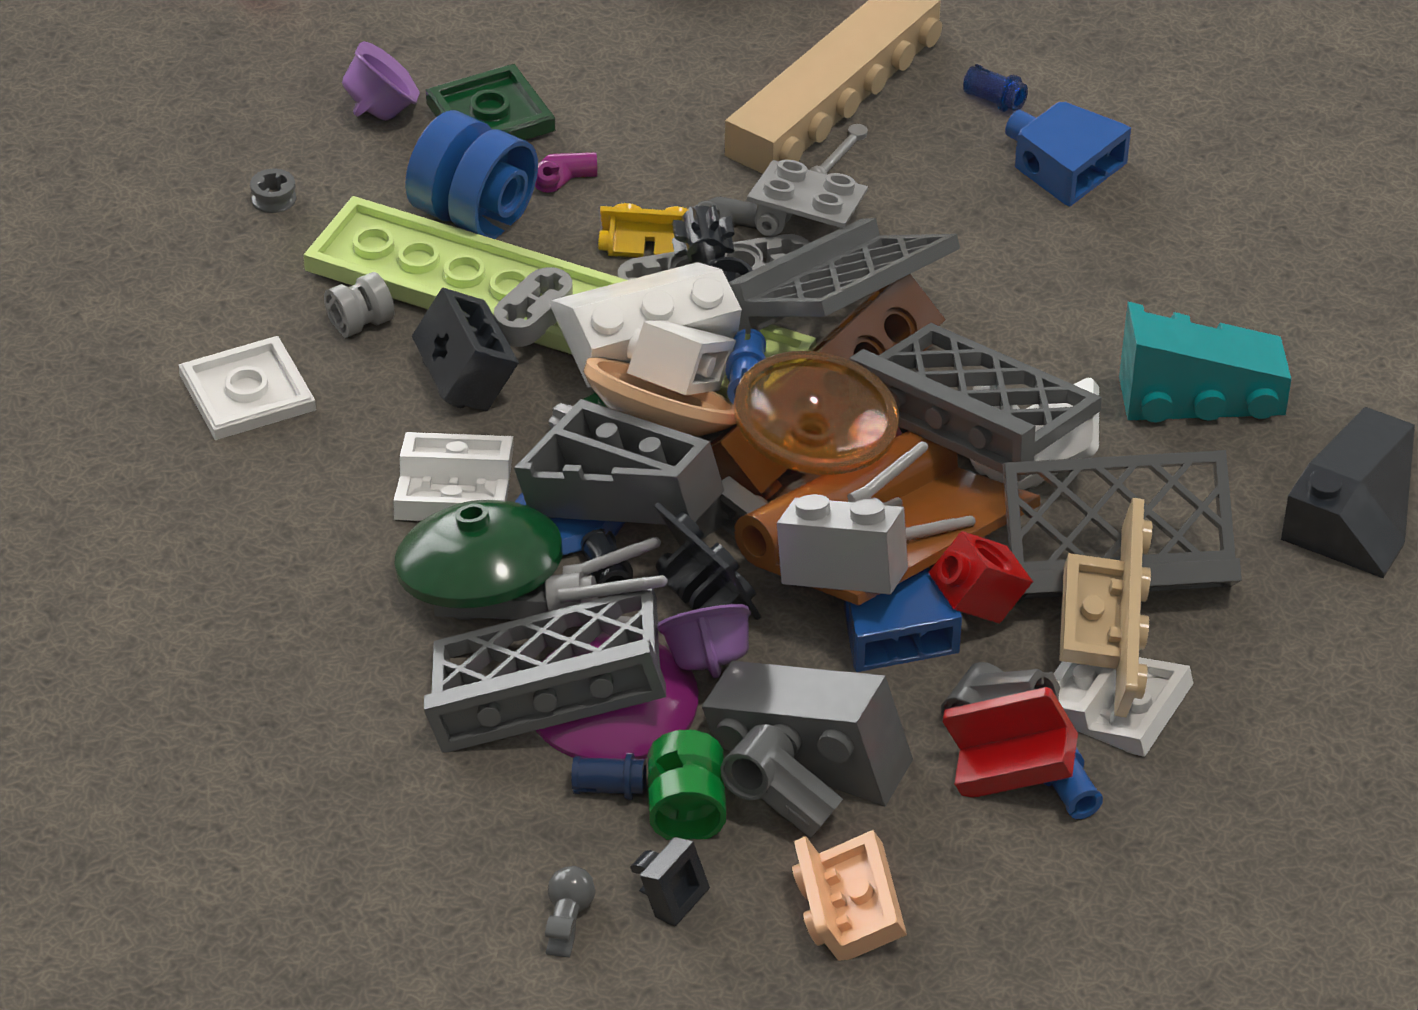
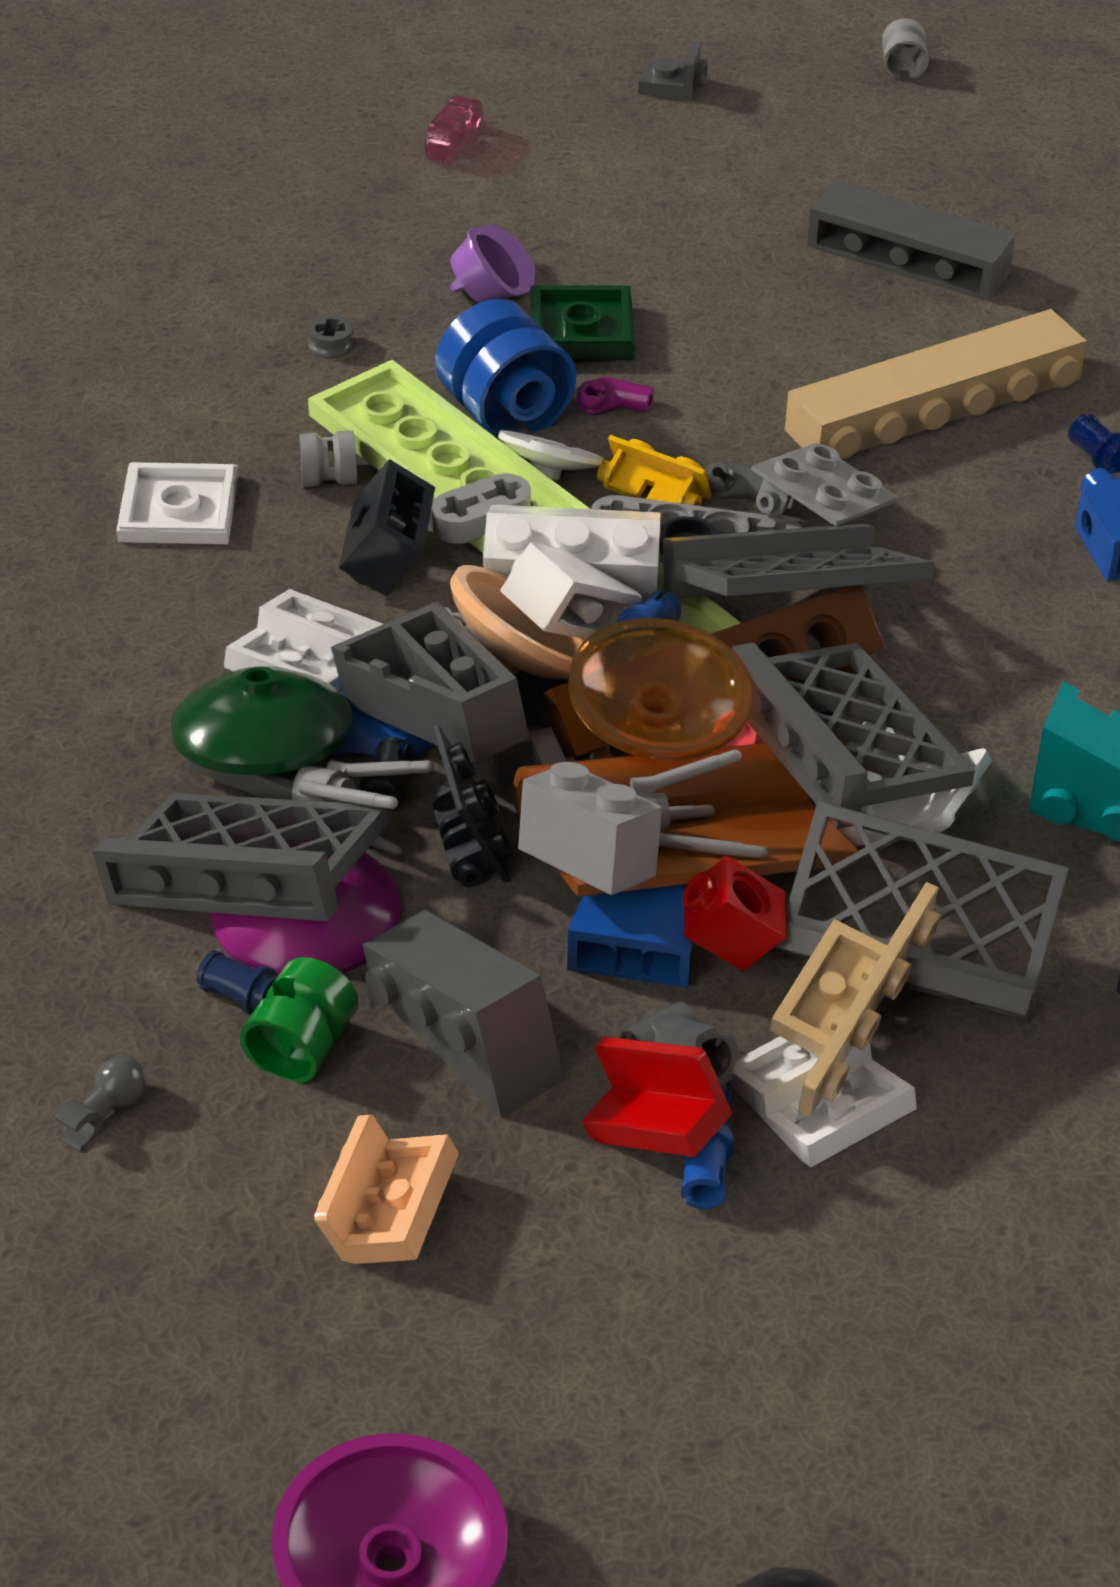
camera: 25 degrees right, 0 degrees up
(550, 240) = (548, 455): none -> white dish
(672, 879) = (221, 1111): black tile -> none
(702, 235) = (686, 489): black gear -> none
(707, 637) = (415, 876): medium lavender piece -> none
(766, 769) = (384, 1032): dark grey piece -> none
(855, 133) = (930, 446): light grey hinge -> none

